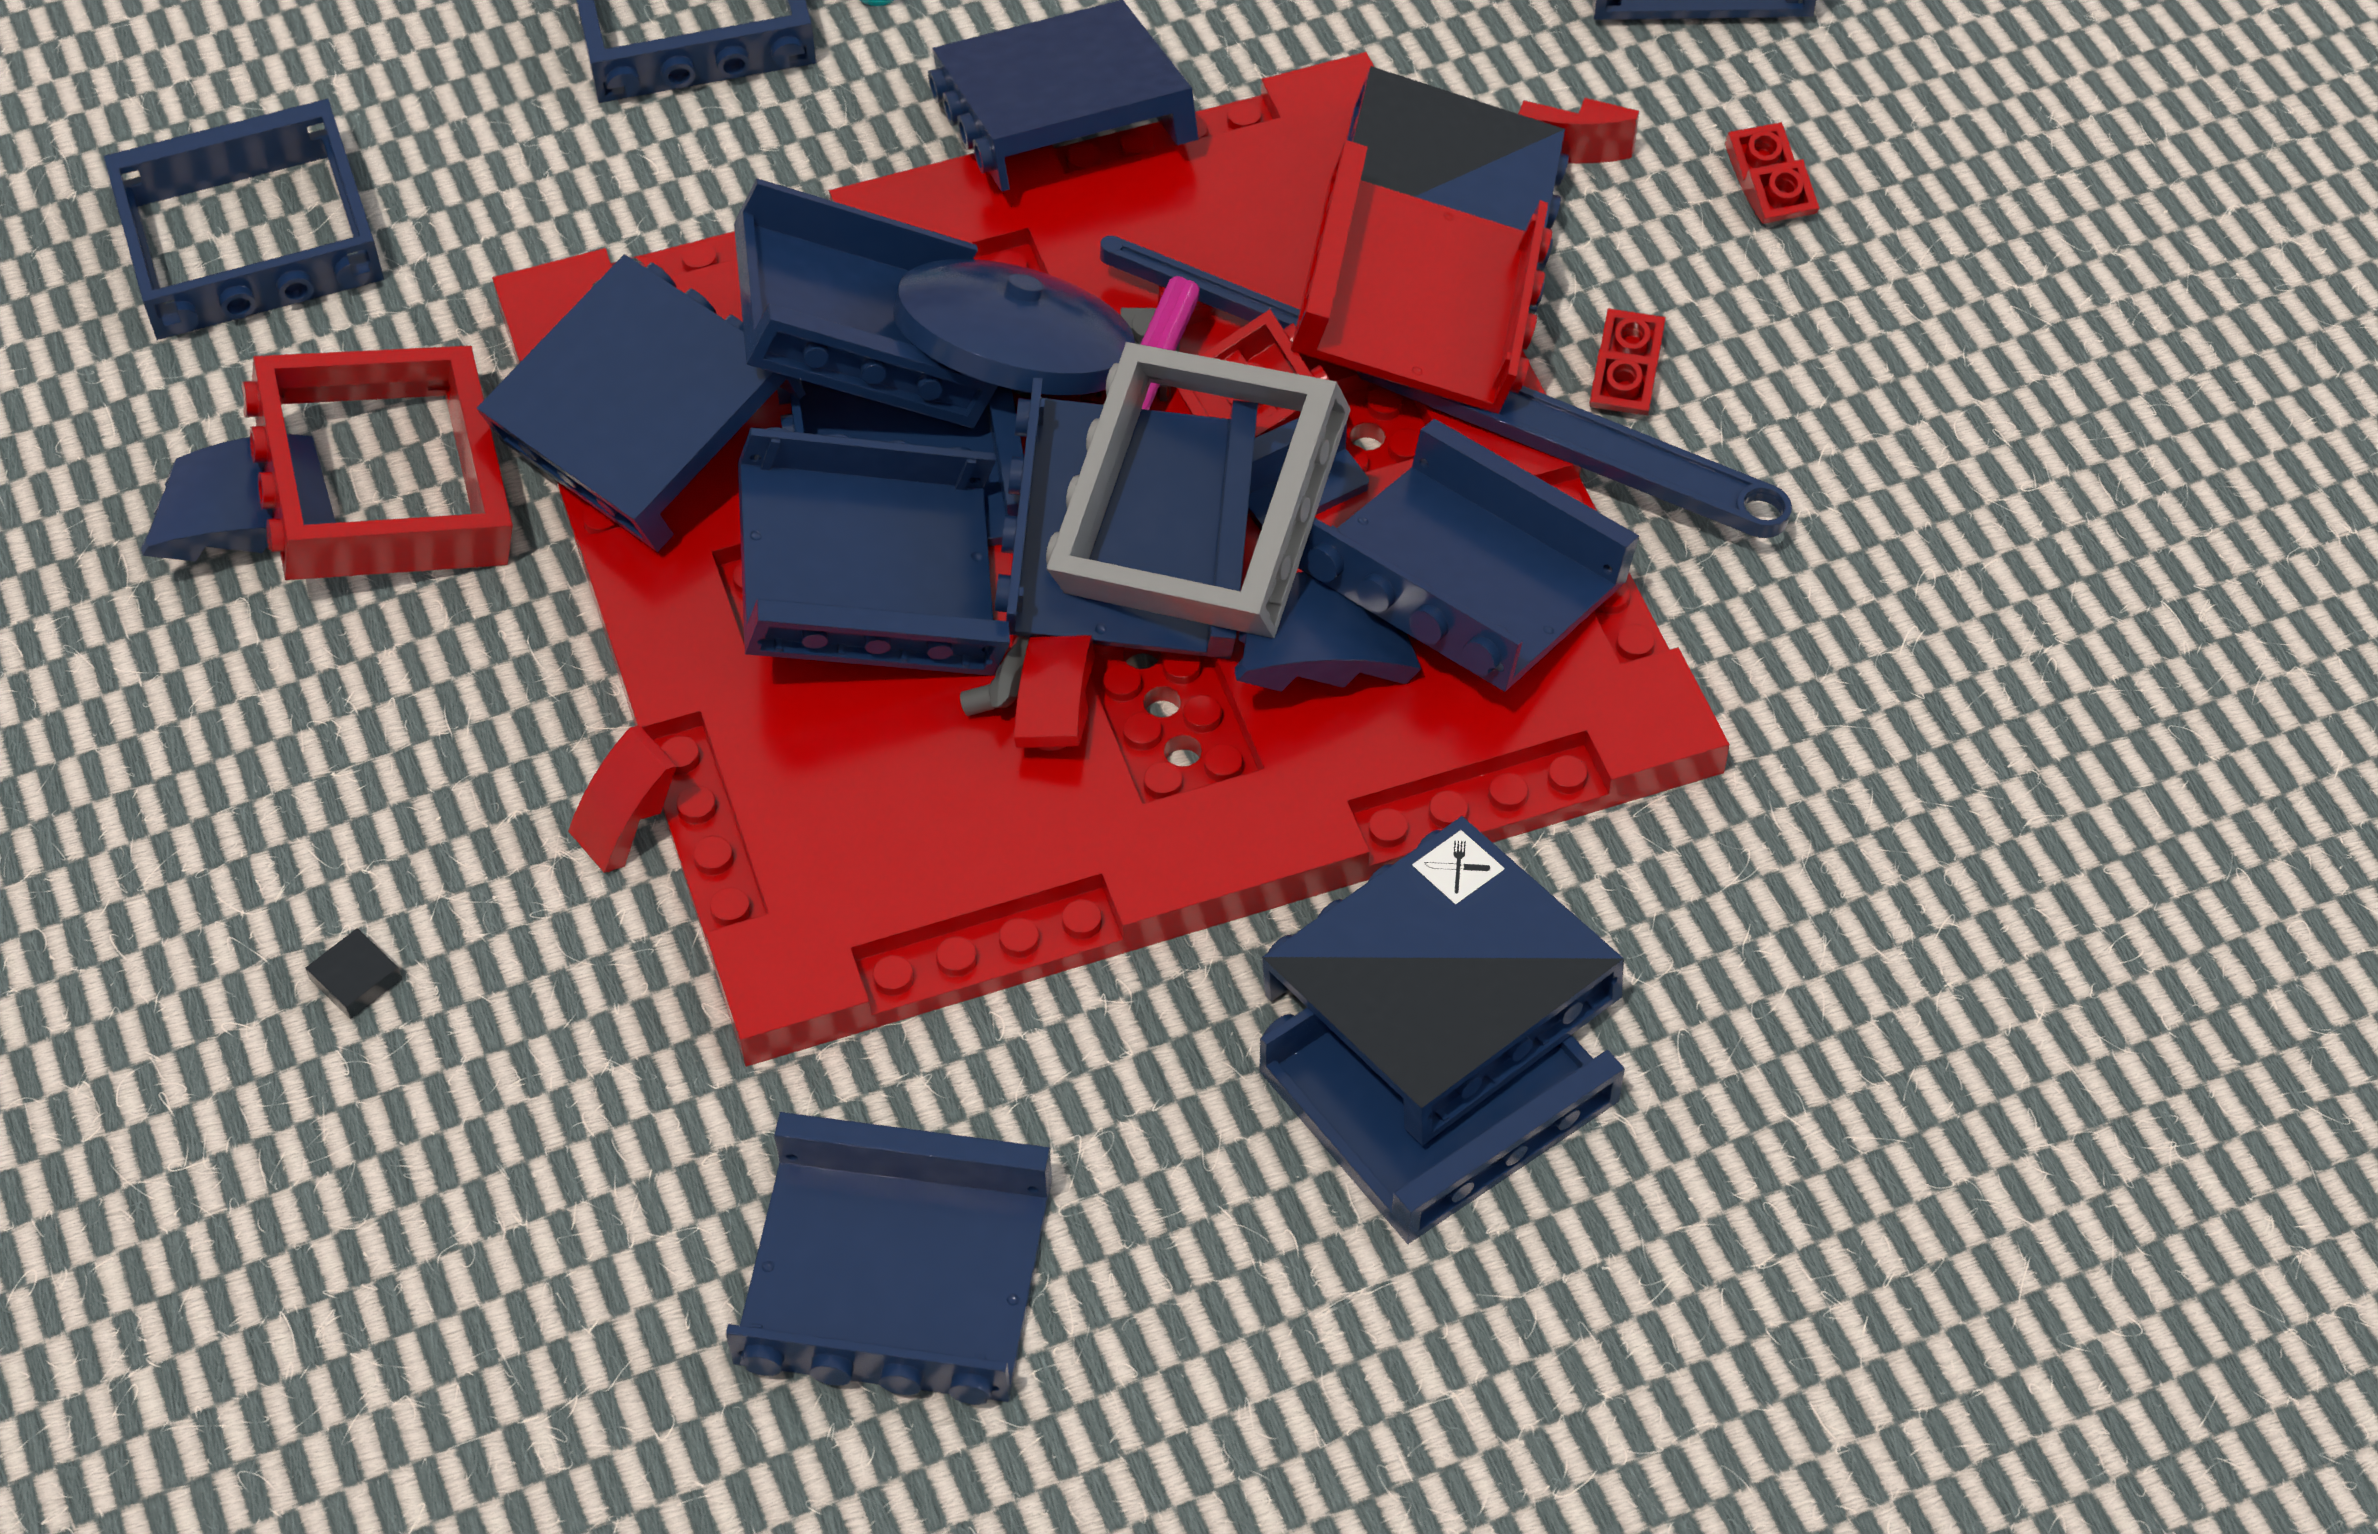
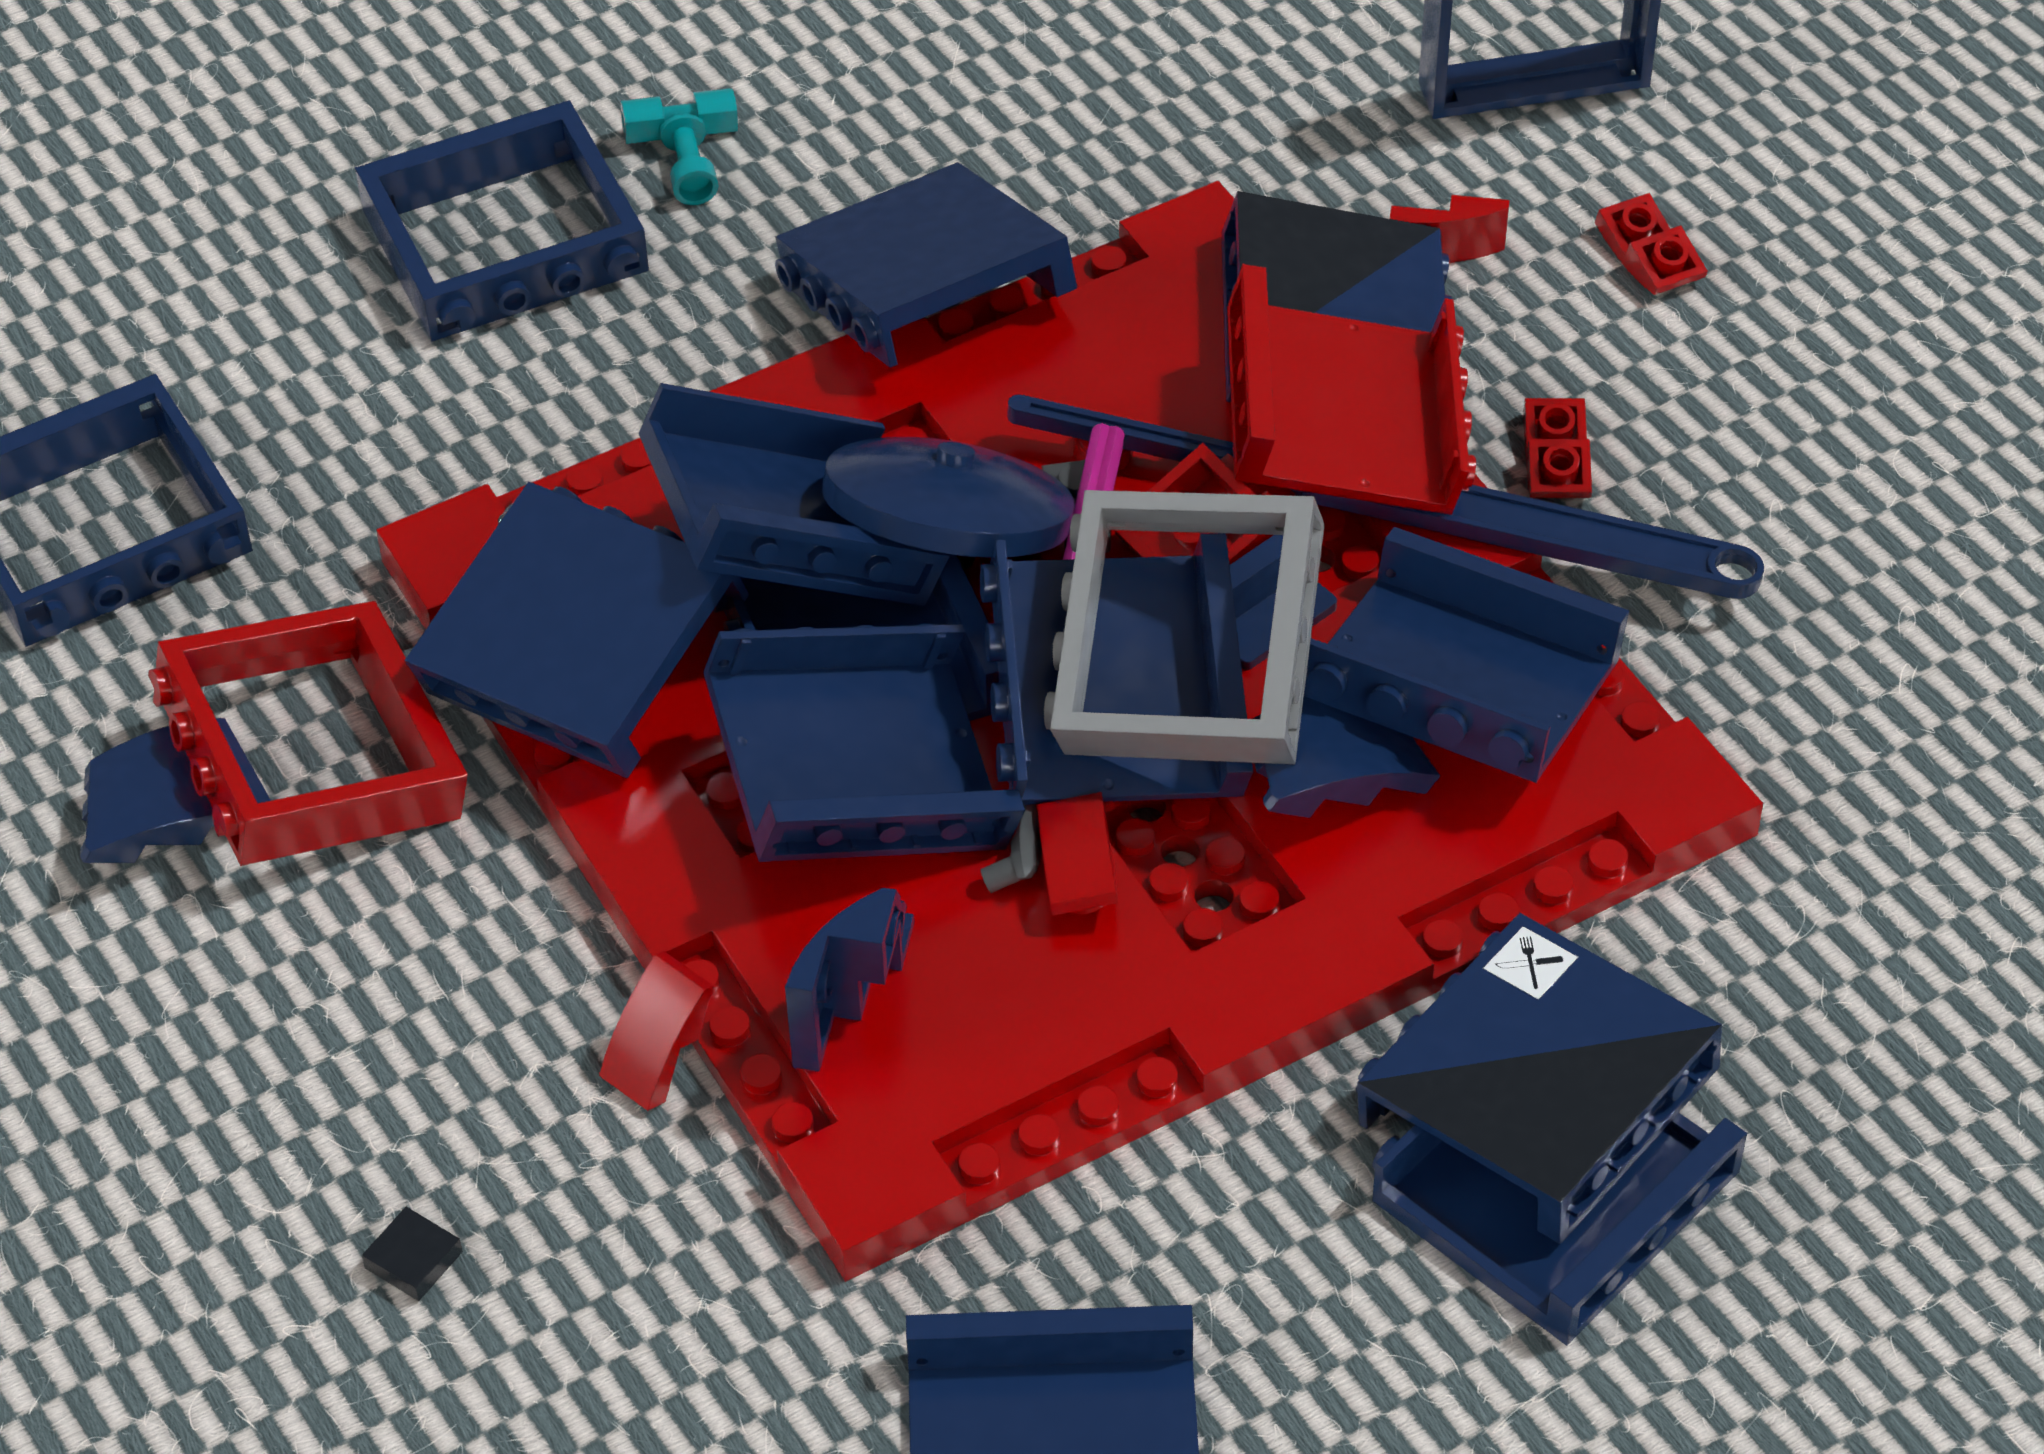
camera: 10 degrees left, 5 degrees down
(798, 770) = (838, 968): none -> dark blue slope

